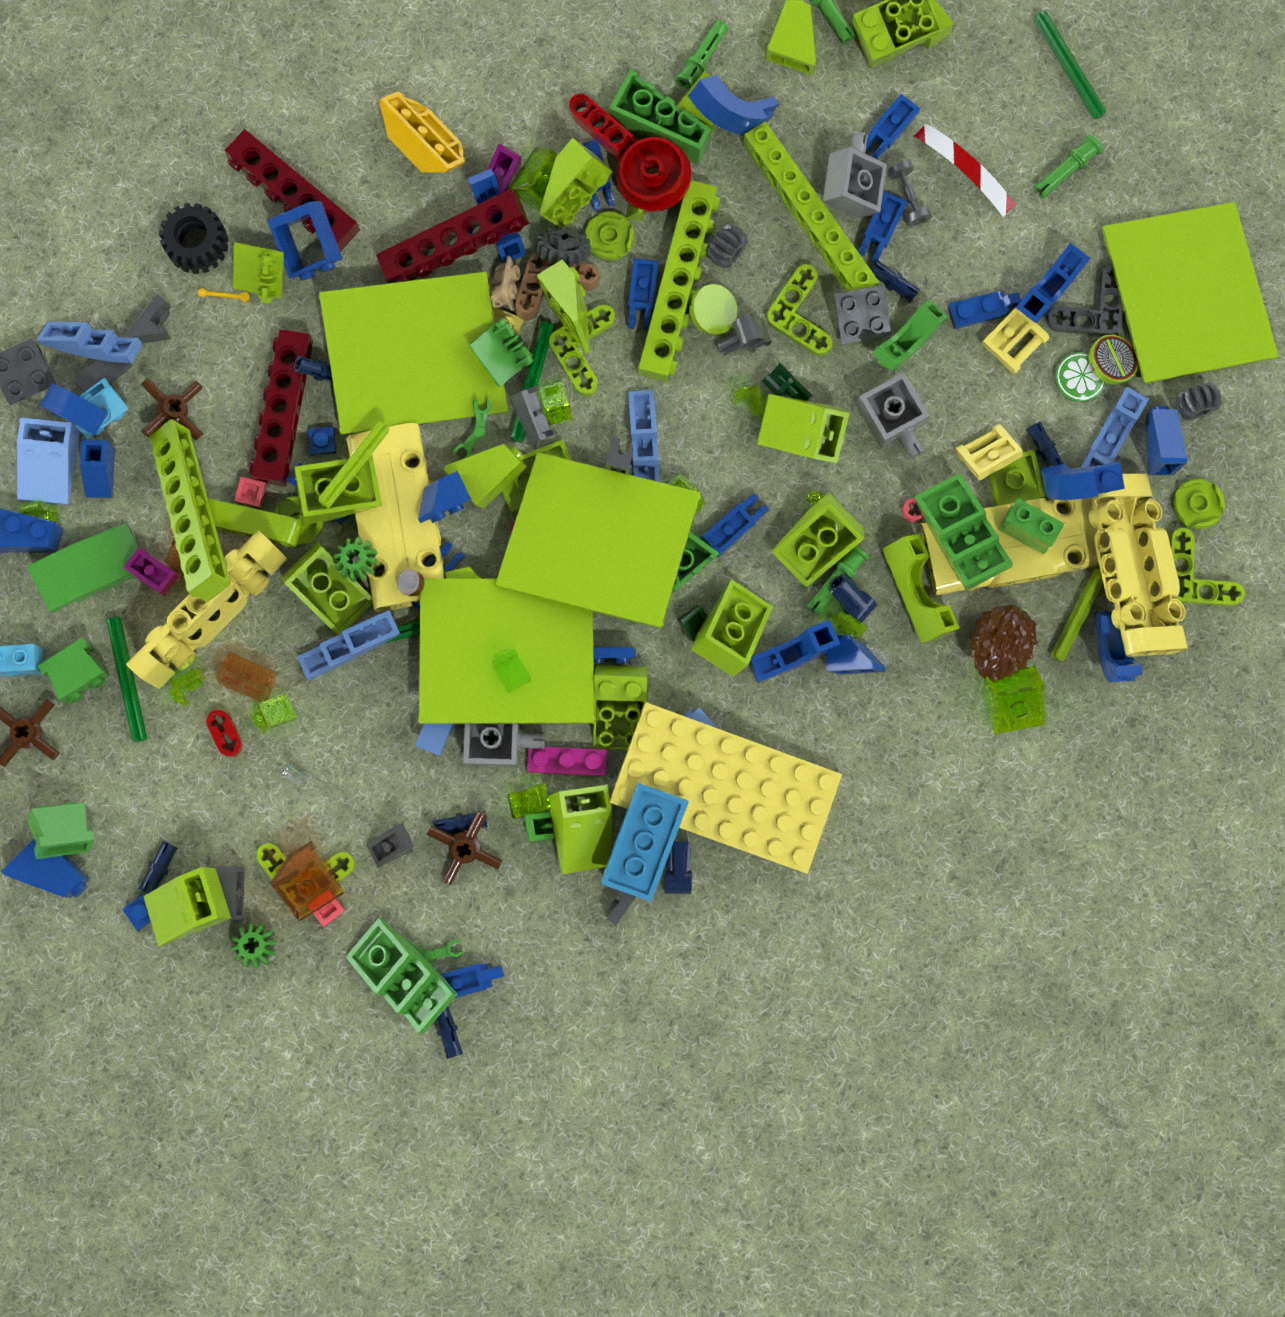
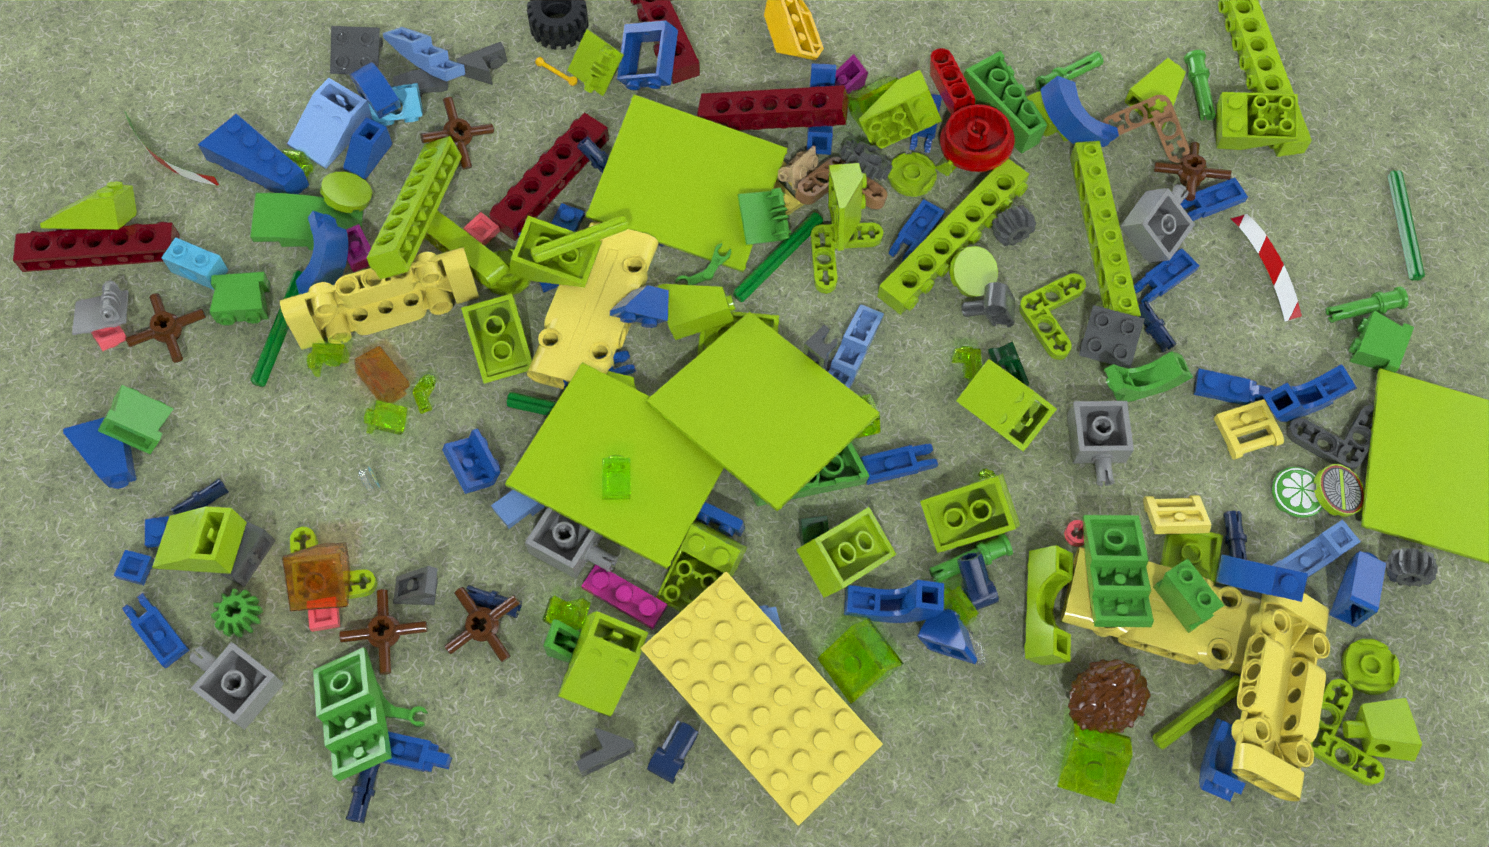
camera: 25 degrees right, 15 degrees down
(105, 520) = (346, 192): none -> lime tile
(135, 597) = (328, 254): none -> blue arch
(141, 953) = (134, 567): none -> blue plate
(196, 996) = (156, 632): none -> blue hinge
(218, 735) = (326, 414): red beam -> none
(277, 1008) = (228, 671): none -> light grey brick
(289, 672) = (422, 392): none -> clear neon green arm
(348, 645) = (487, 392): medium blue slope -> none
(360, 550) = (535, 318): bright green gear -> none
(373, 713) = (472, 462): none -> blue bracket
(375, 895) = (390, 636): none -> reddish brown bar
(410, 582) = (571, 361): tile -> none
(531, 415) = (762, 279): dark grey hinge -> none
(555, 403) = (789, 283): clear neon green bracket -> none
(644, 841) = (651, 702): dark azure plate -> none
(789, 714) = (860, 660): none -> clear neon green slope
(808, 70) = (1159, 119): none -> medium nougat beam
(860, 106) = (1192, 171): none -> reddish brown bar
(919, 215) = (1207, 238): flat silver wheel -> none
(1093, 199) = (1380, 343): none -> bright green hips
(1231, 554) = (1386, 730): none -> lime torso

